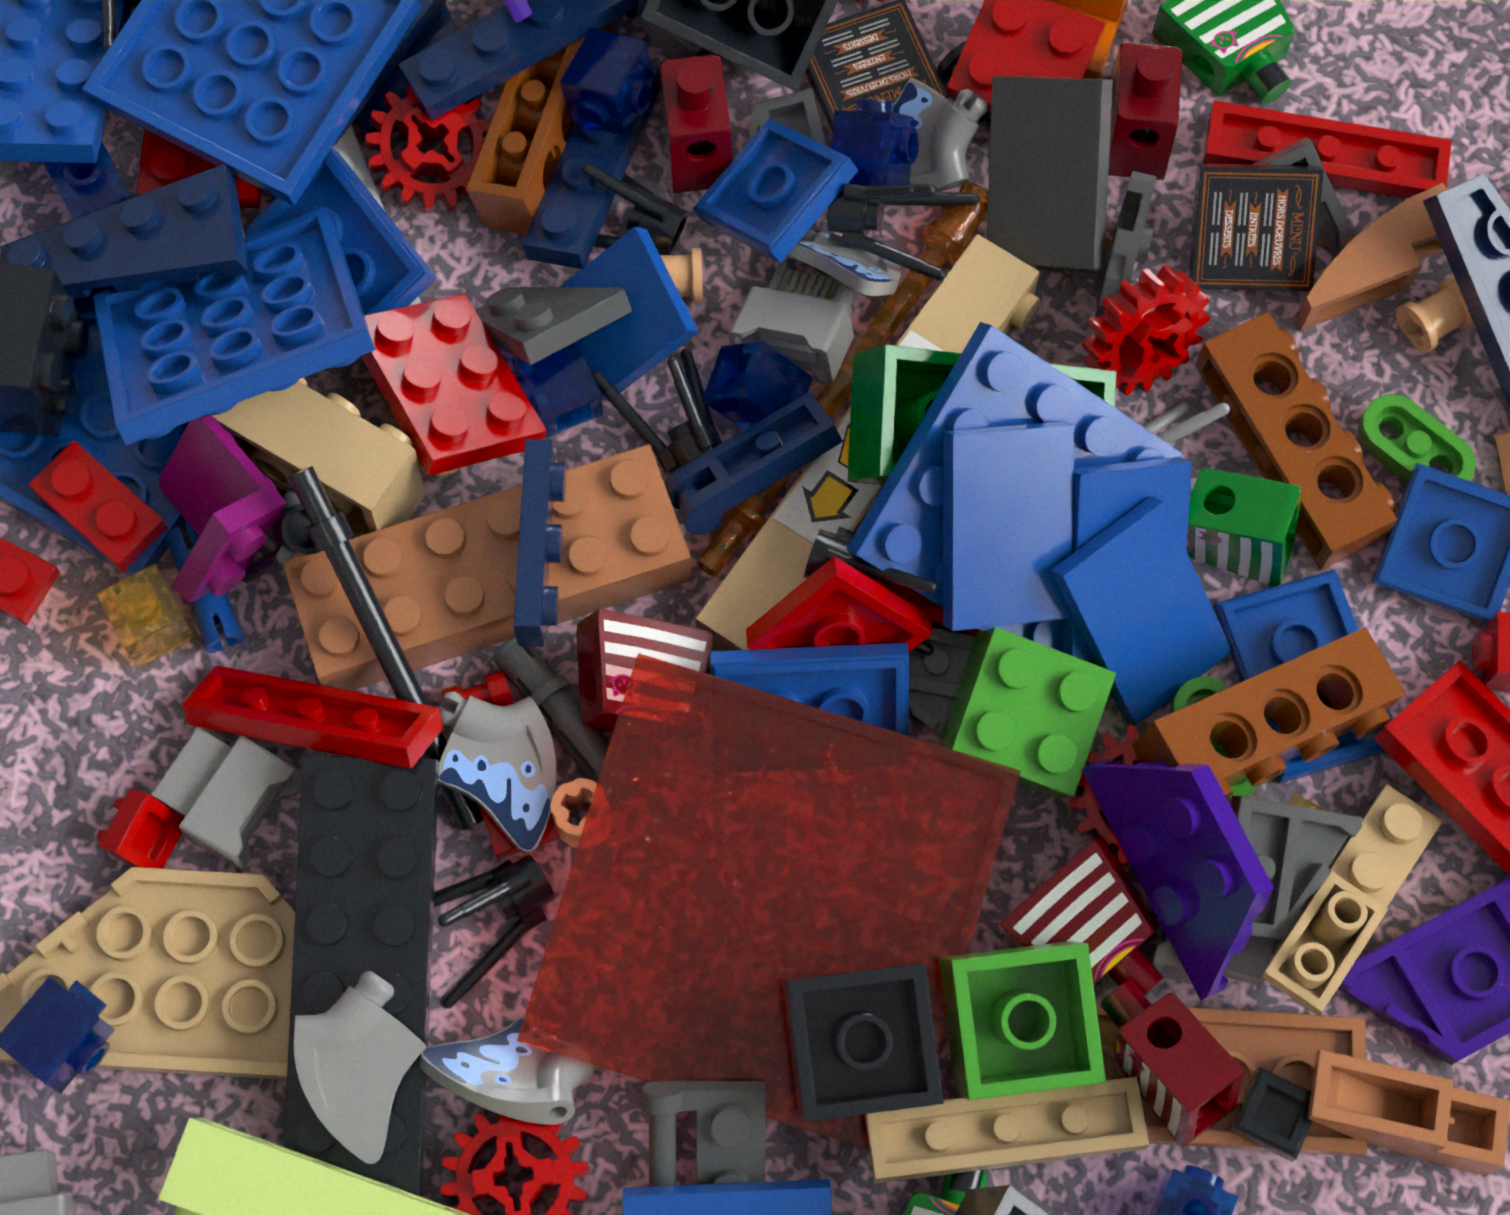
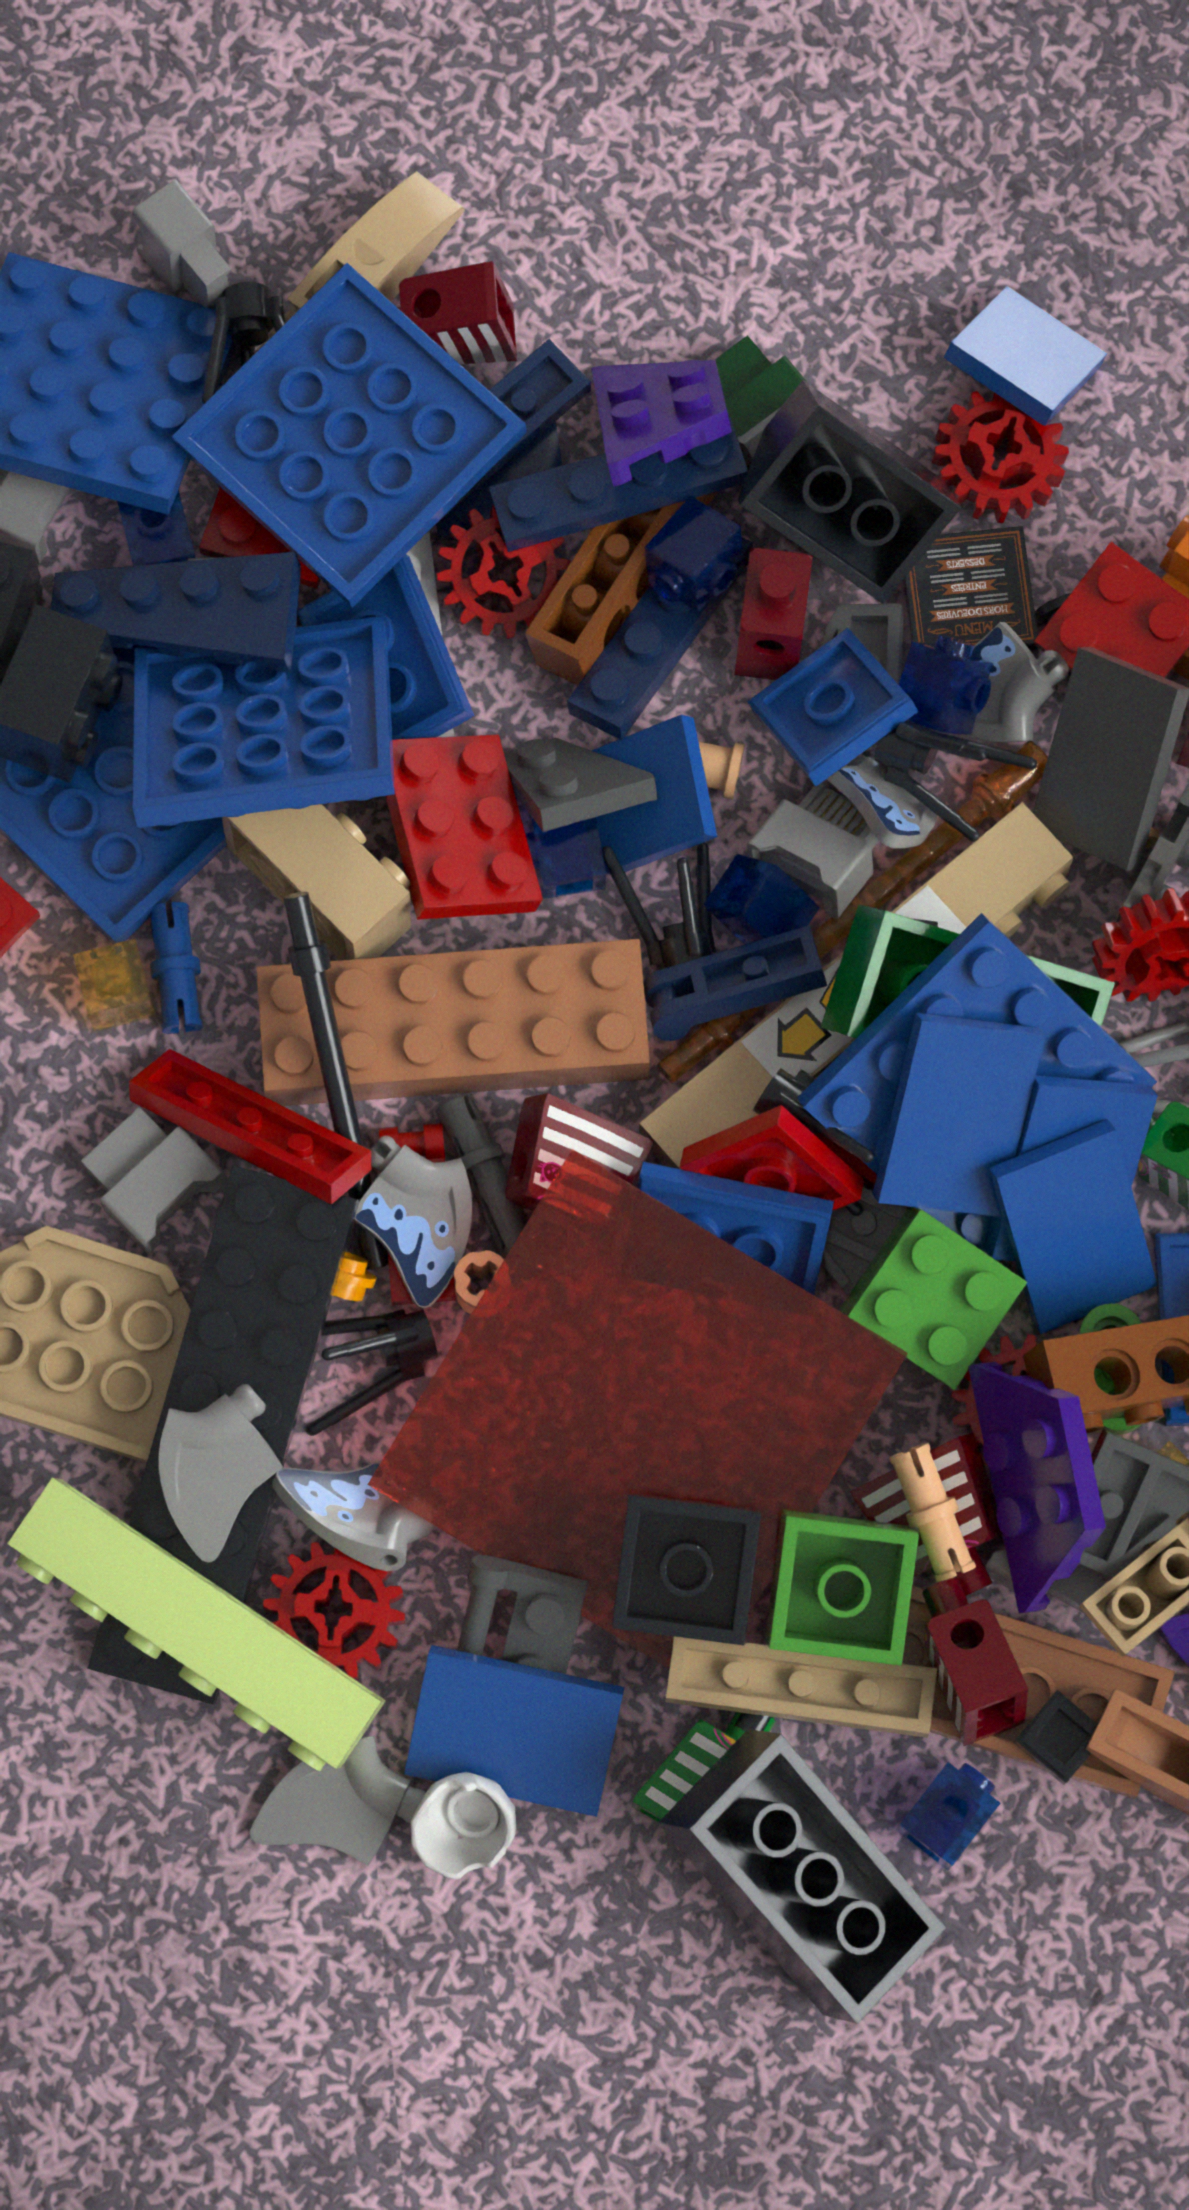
camera: 15 degrees right, 5 degrees up
(98, 506) = (92, 864): red plate -> none
(141, 831) = (63, 1193): red tile -> none
(223, 502) = (215, 897): magenta bracket -> none
(290, 536) = (271, 938): black plant -> none
(451, 841) = (353, 1278): none -> light orange plate
(538, 543) = (505, 1016): dark blue plate -> none
(660, 217) = (707, 695): black plant -> none
(1090, 920) = (932, 1512): none -> light nougat pin

